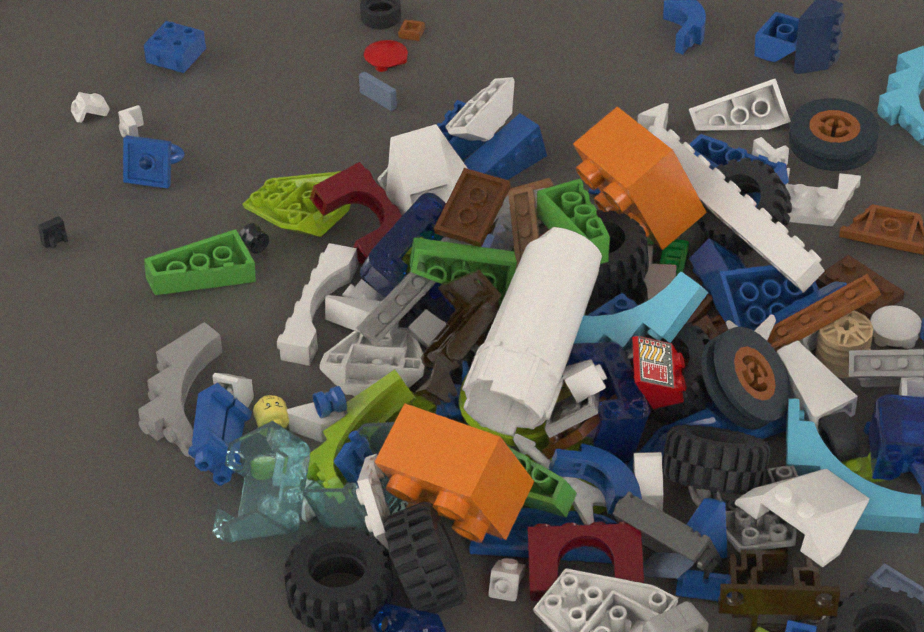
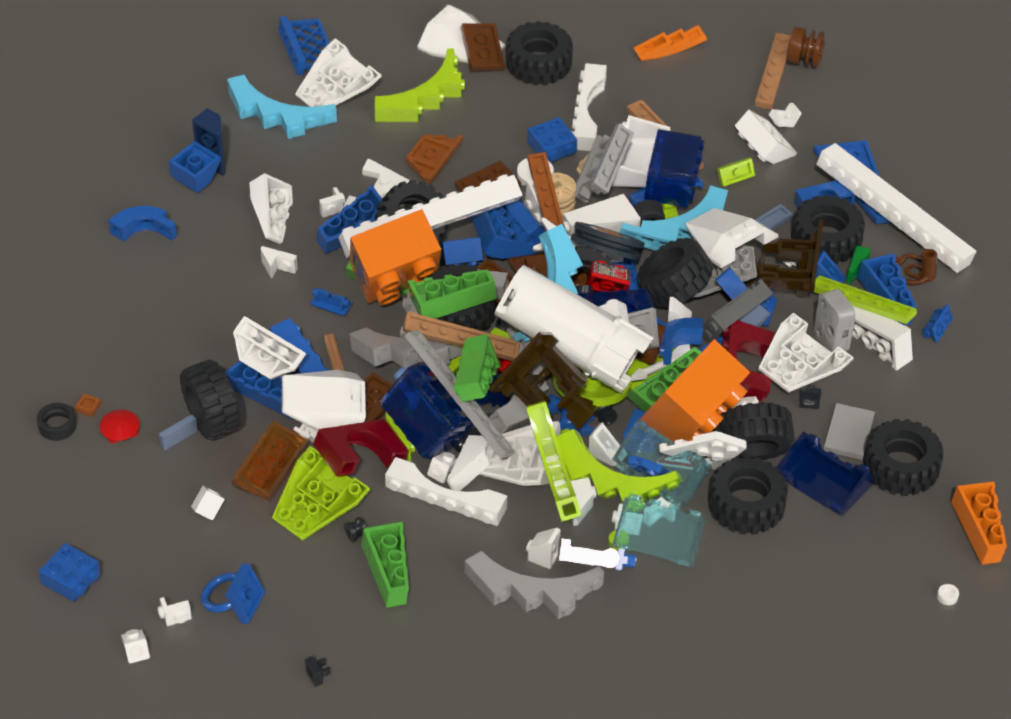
camera: 85 degrees left, 5 degrees up
(271, 409) = (572, 529): light yellow head -> none
(282, 124) = (207, 502): none -> white panel
(327, 147) = (269, 461): none -> clear orange windscreen
(329, 402) = (581, 481): blue wheel -> none
(363, 361) = (553, 461): none -> lime arch
(389, 73) = (210, 399): none -> black tyre
(472, 207) = (430, 346): reddish brown plate -> none
(854, 136) = (316, 176): black wheel -> none

